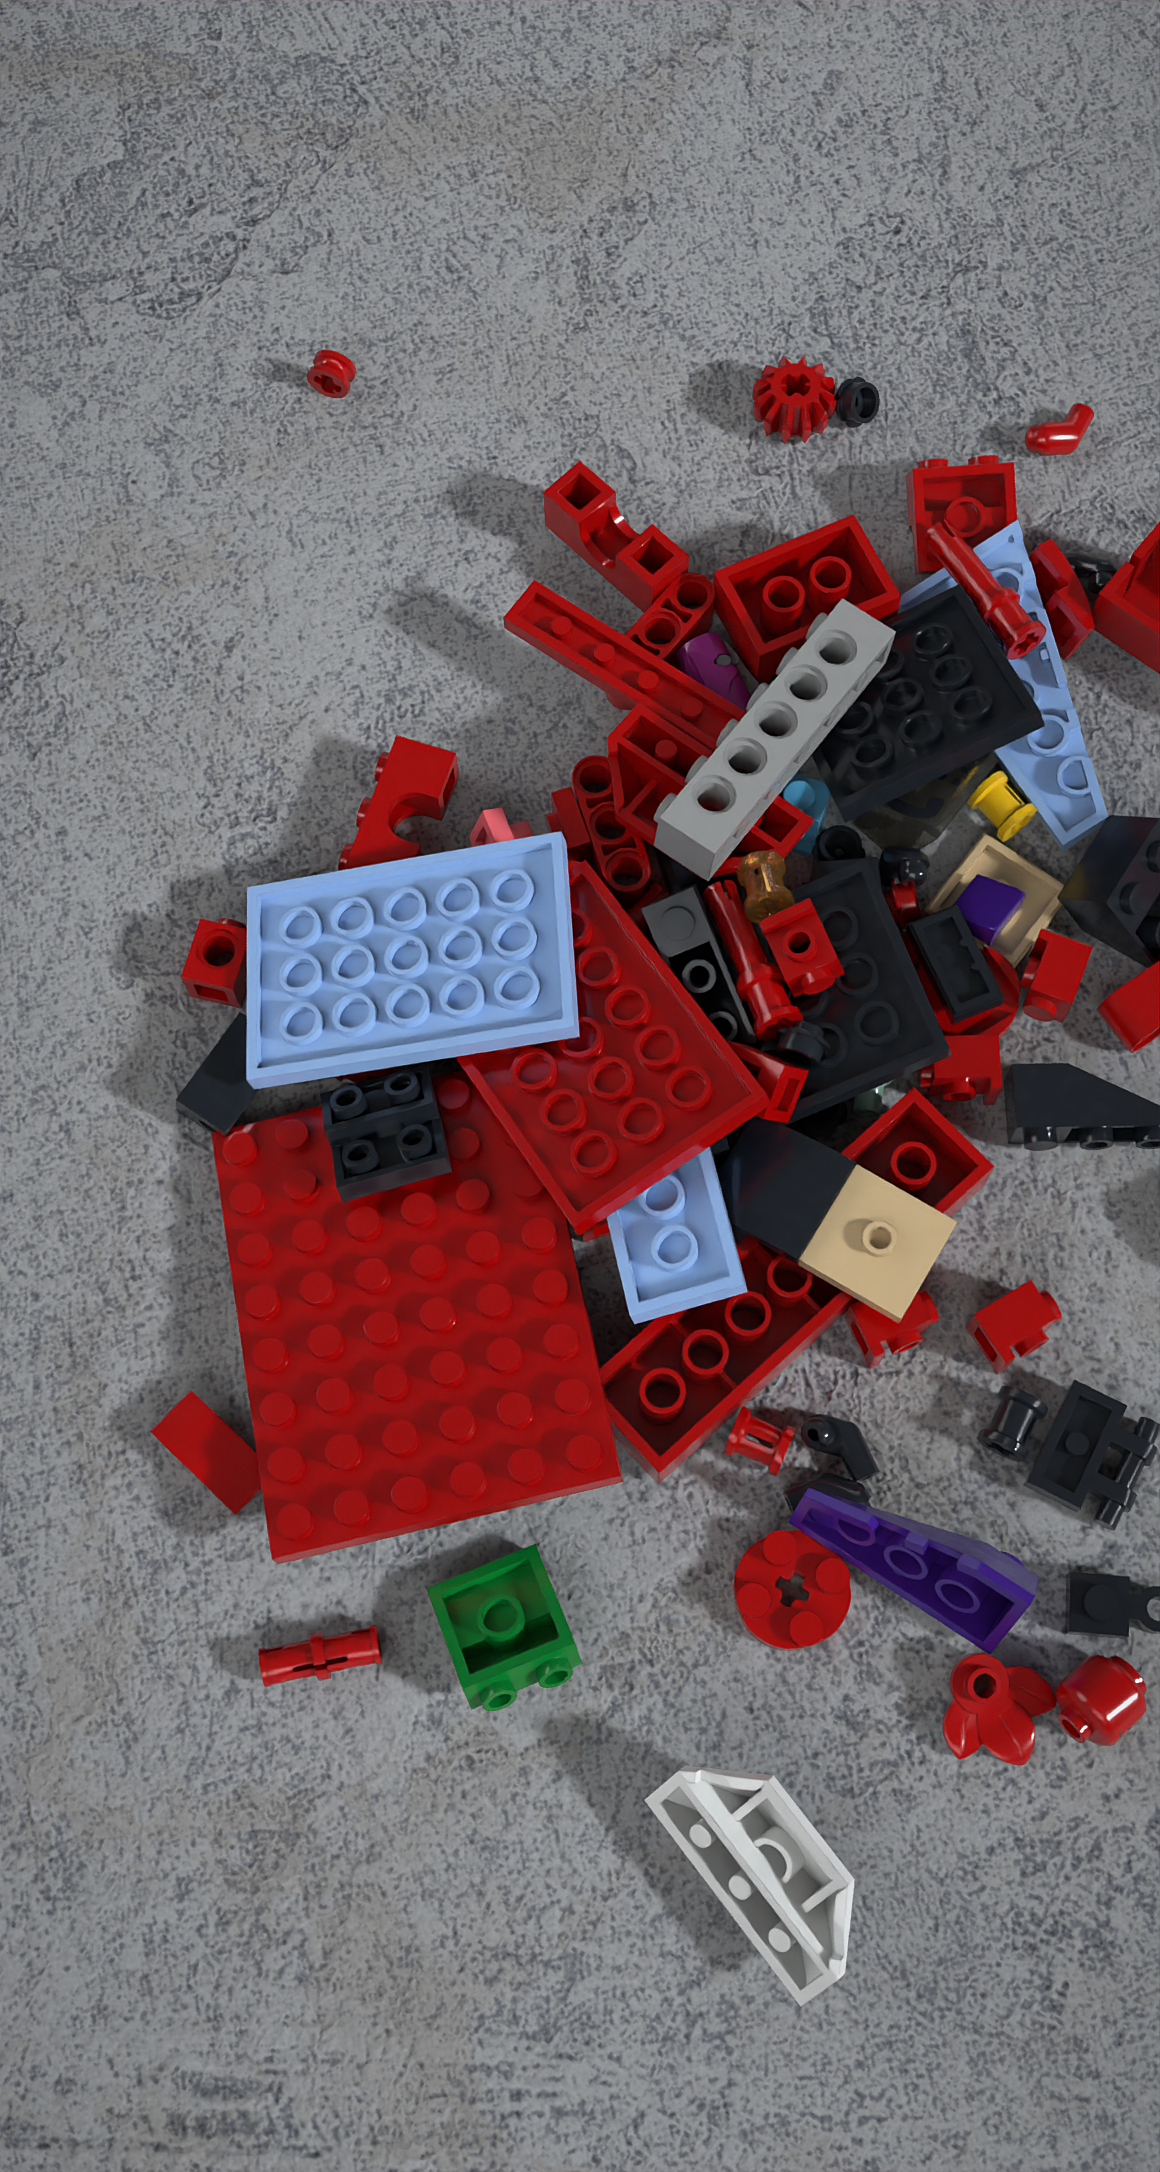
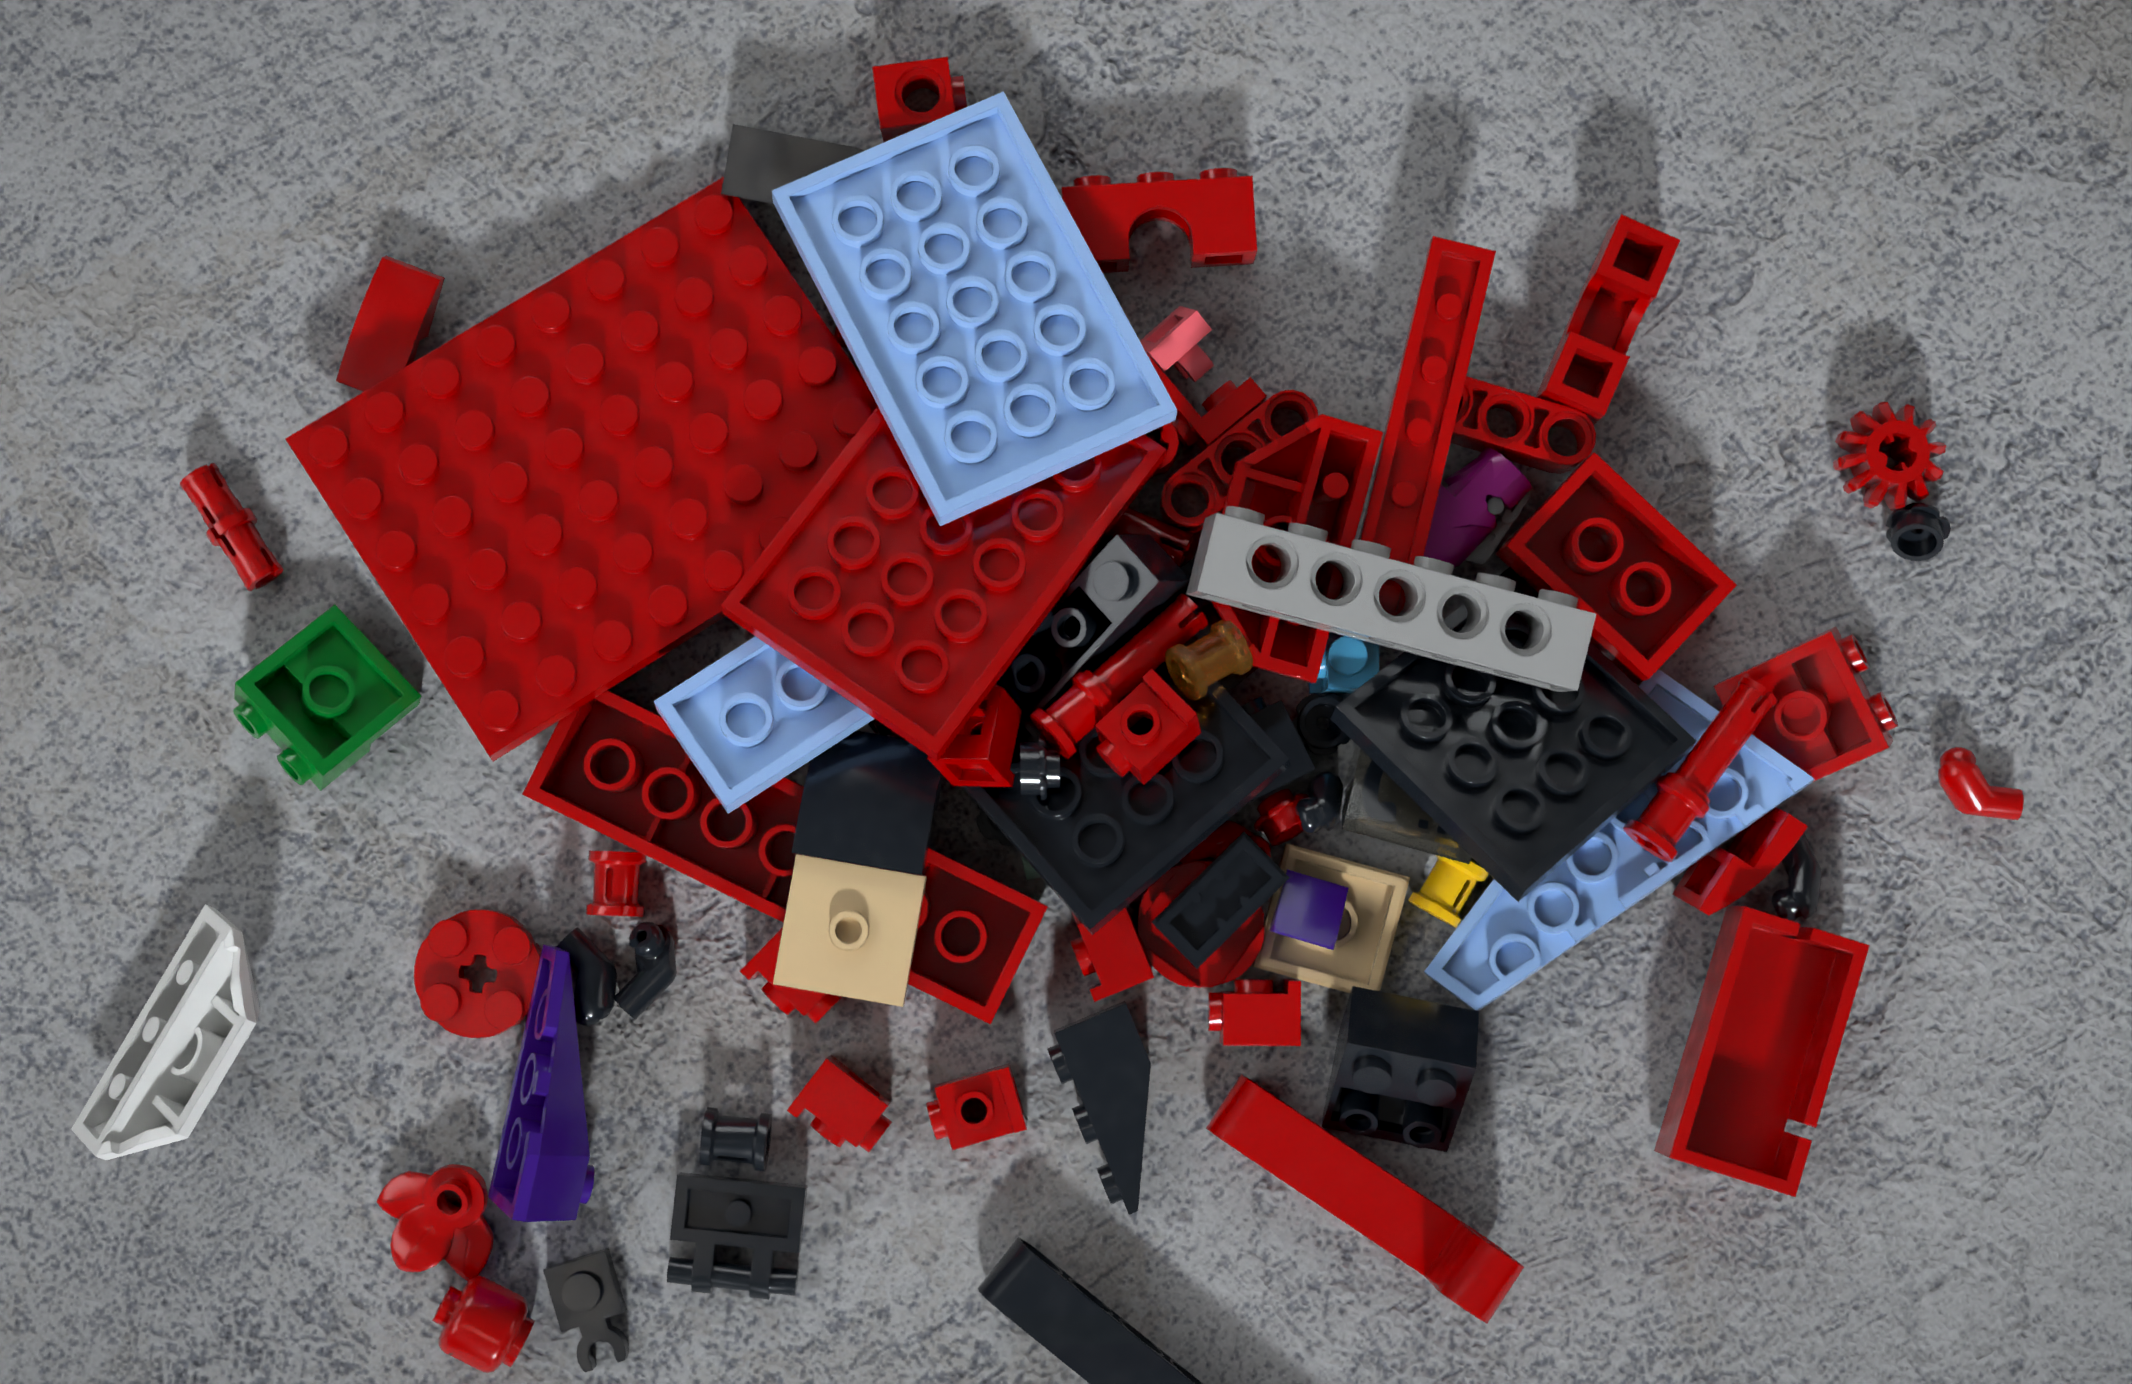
camera: 65 degrees right, 15 degrees up
(385, 1133) = (775, 362): black slope -> none
(1038, 1233) = (998, 1092): none -> red brick

